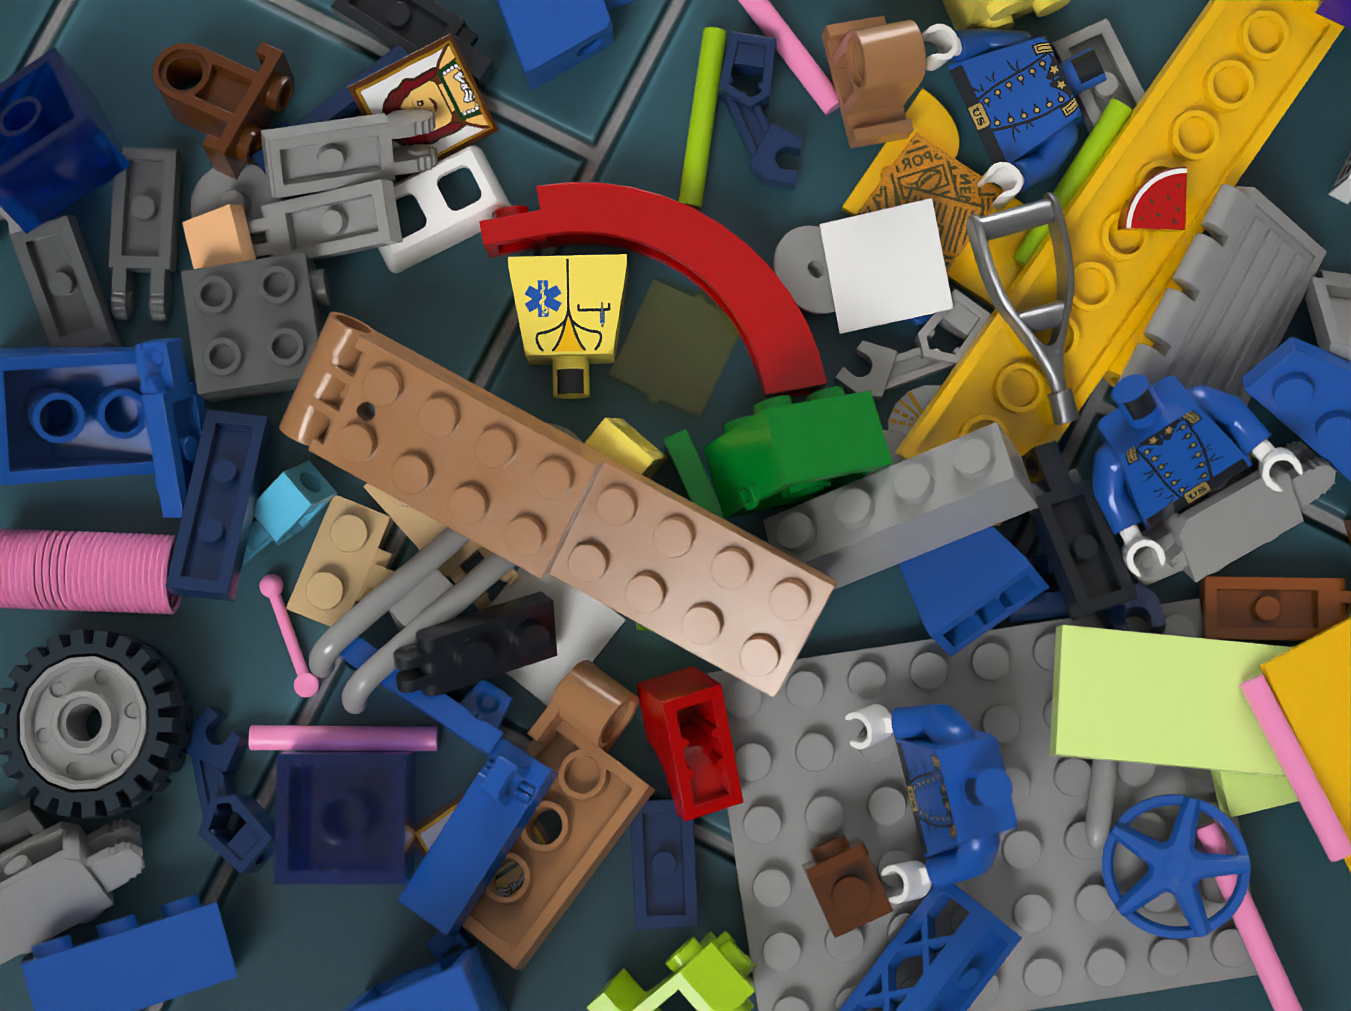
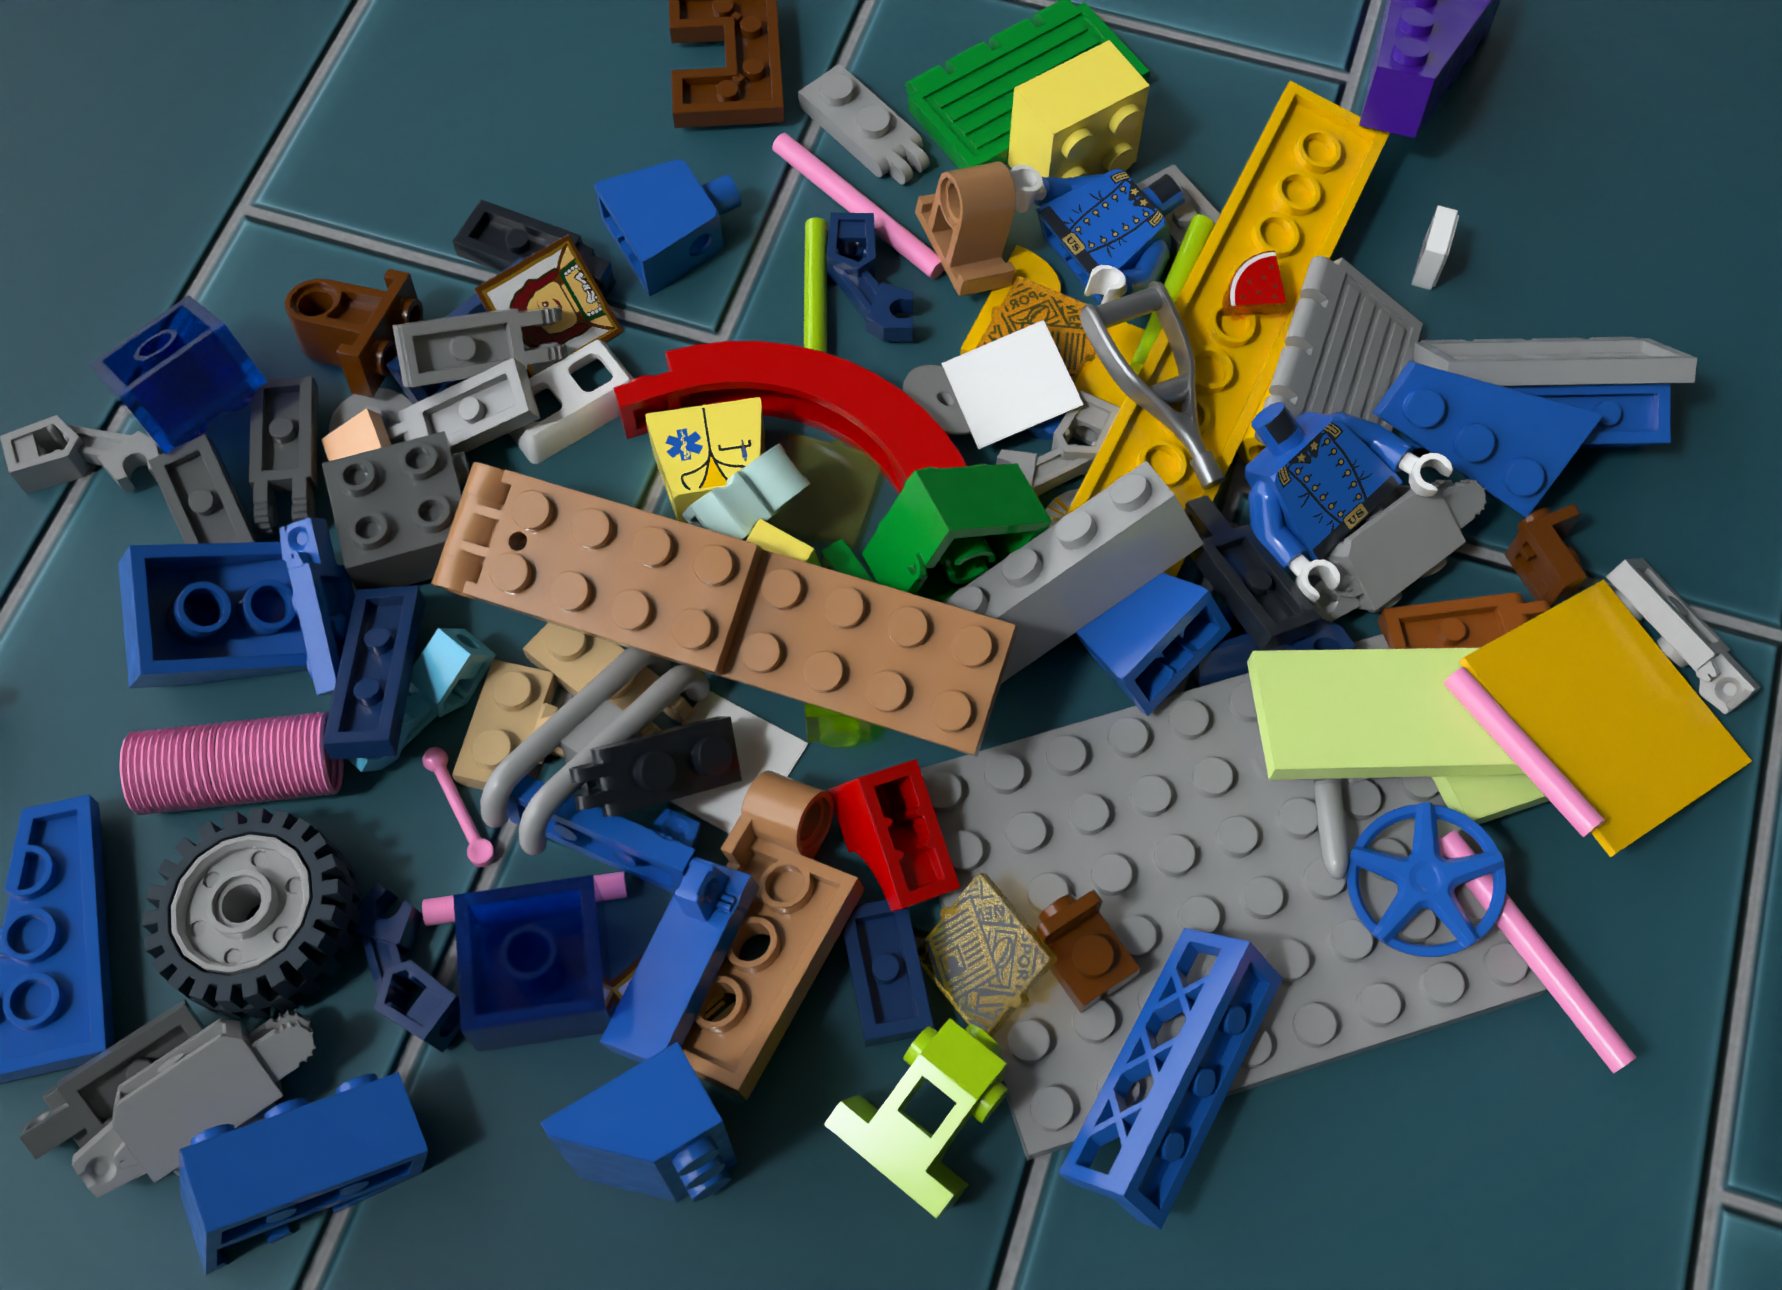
camera: 10 degrees left, 20 degrees down
(605, 375) = (749, 495): none -> light aqua leg
(755, 872) = (985, 956): none -> clear yellow piece
(953, 788) = (1180, 828): blue torso -> none

